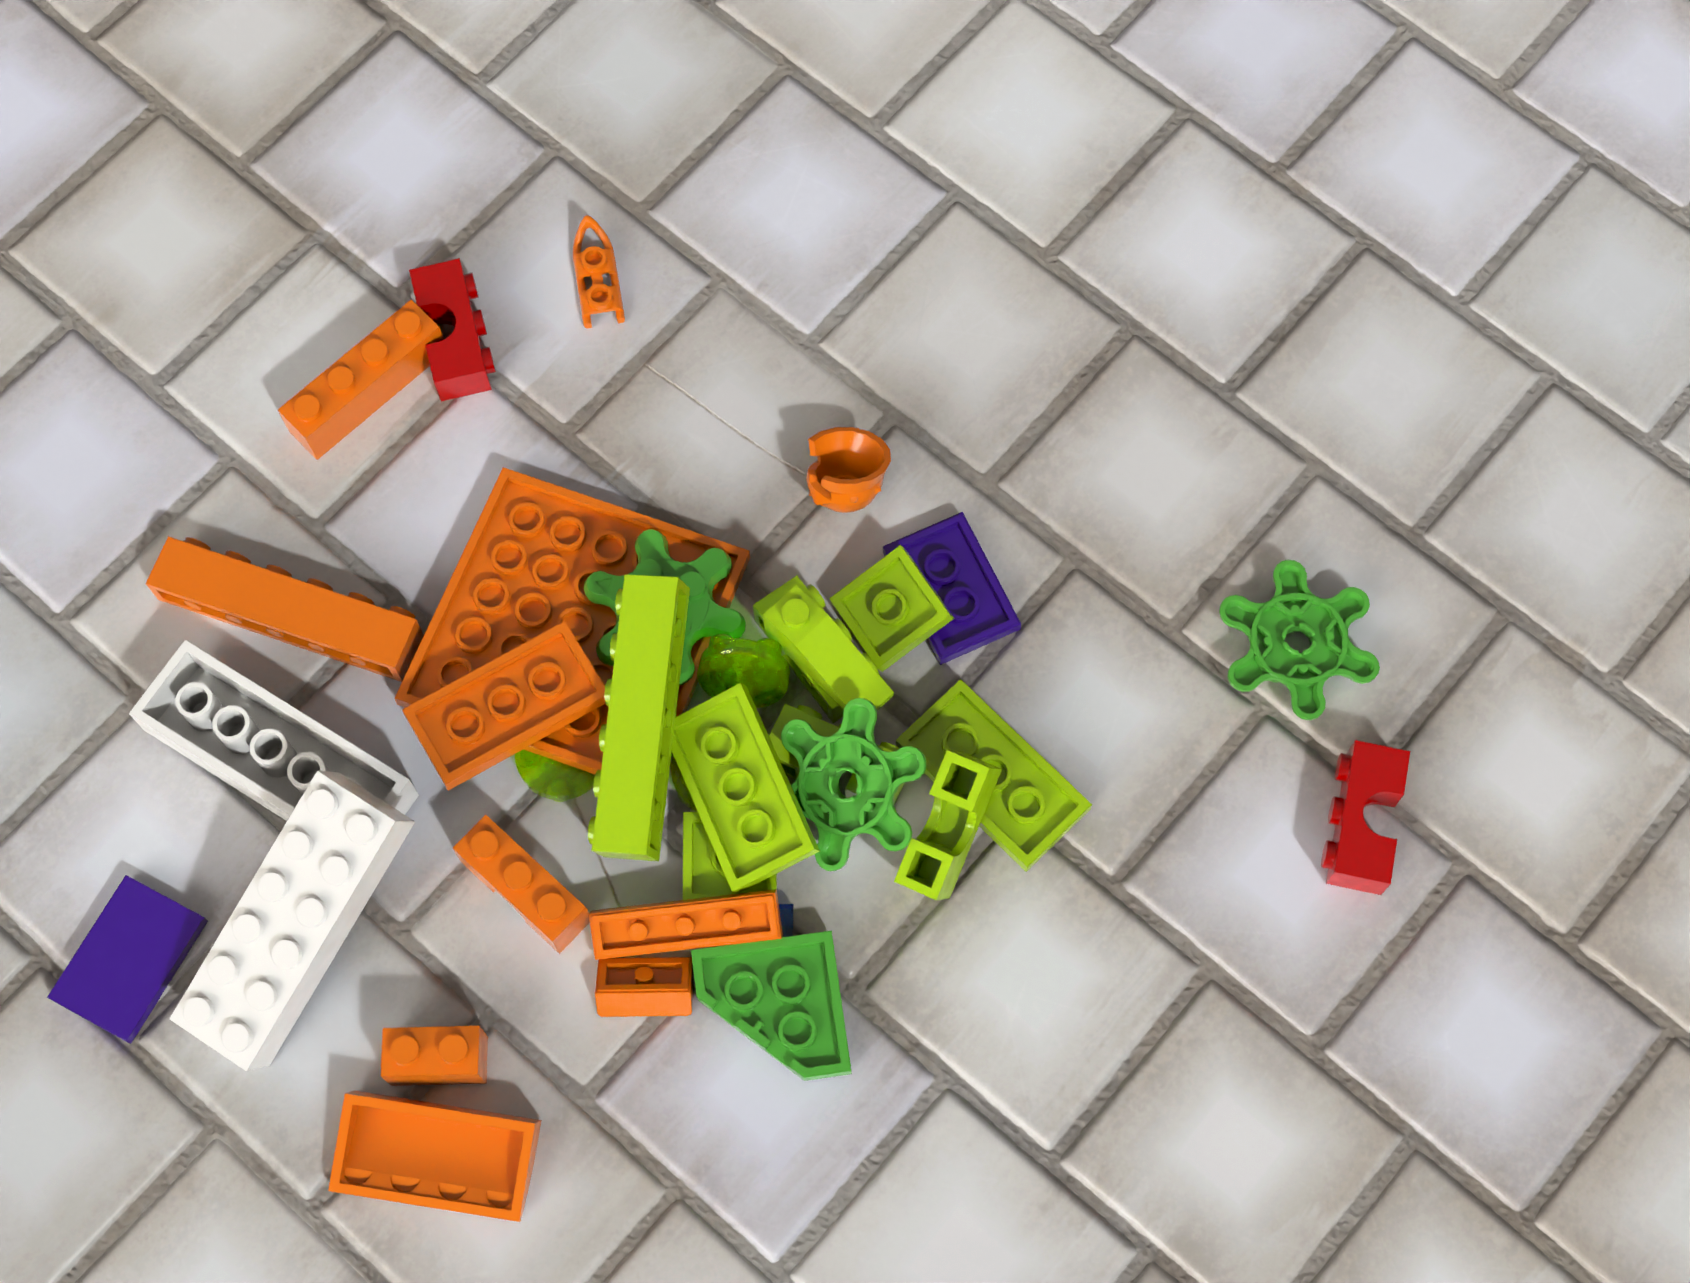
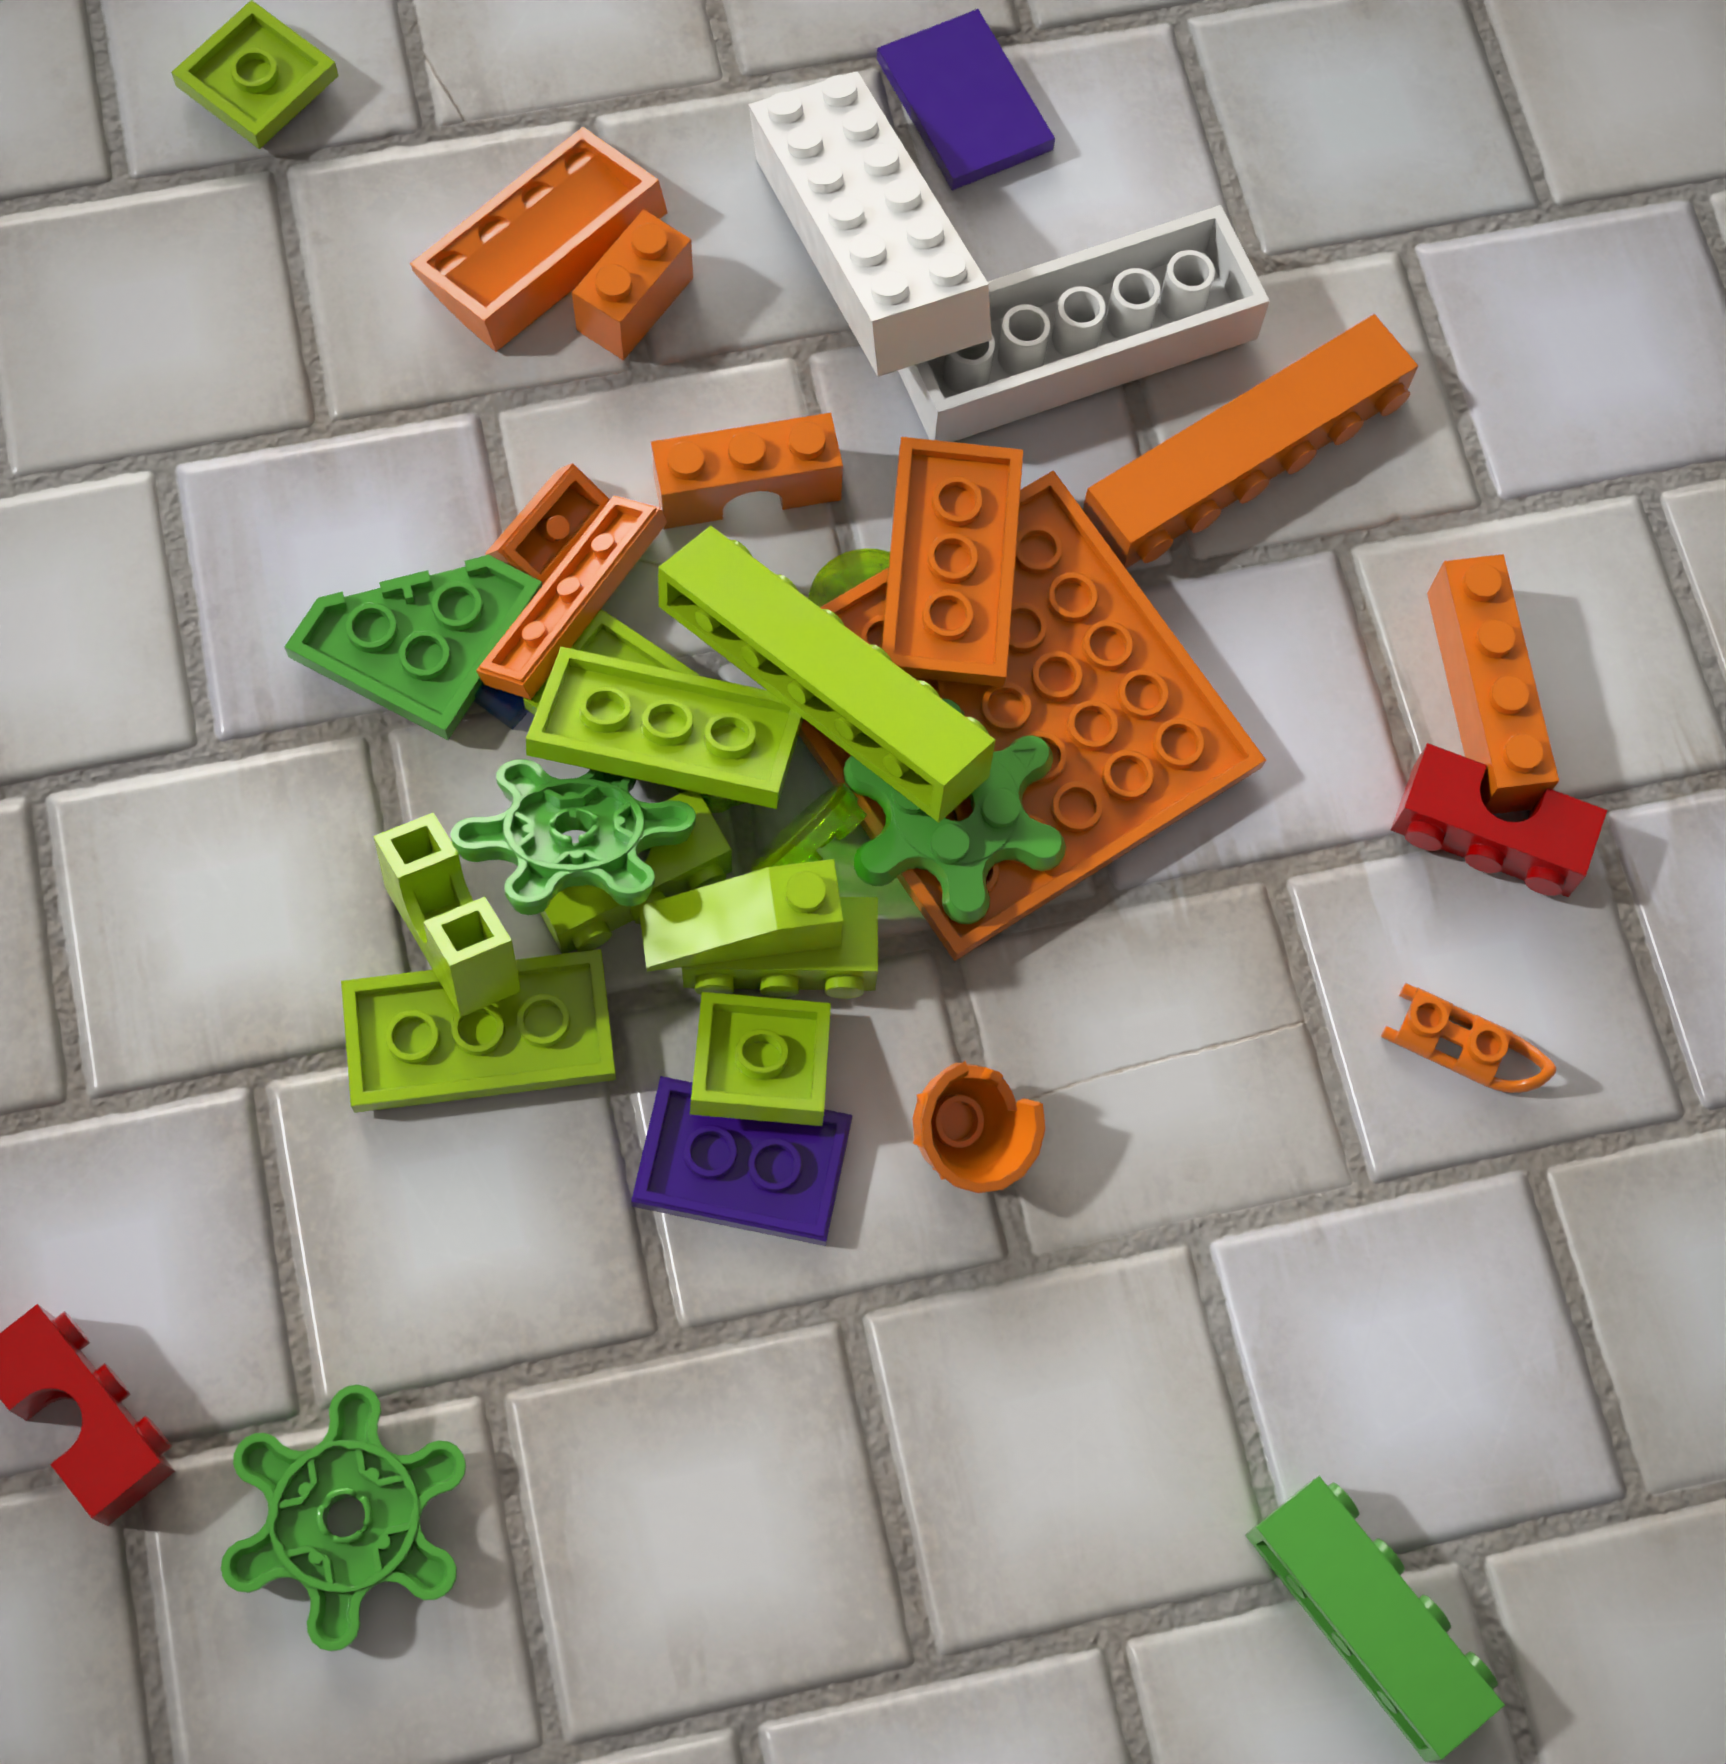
camera: 120 degrees right, 0 degrees up
(944, 140) = (1376, 1619): none -> bright green brick

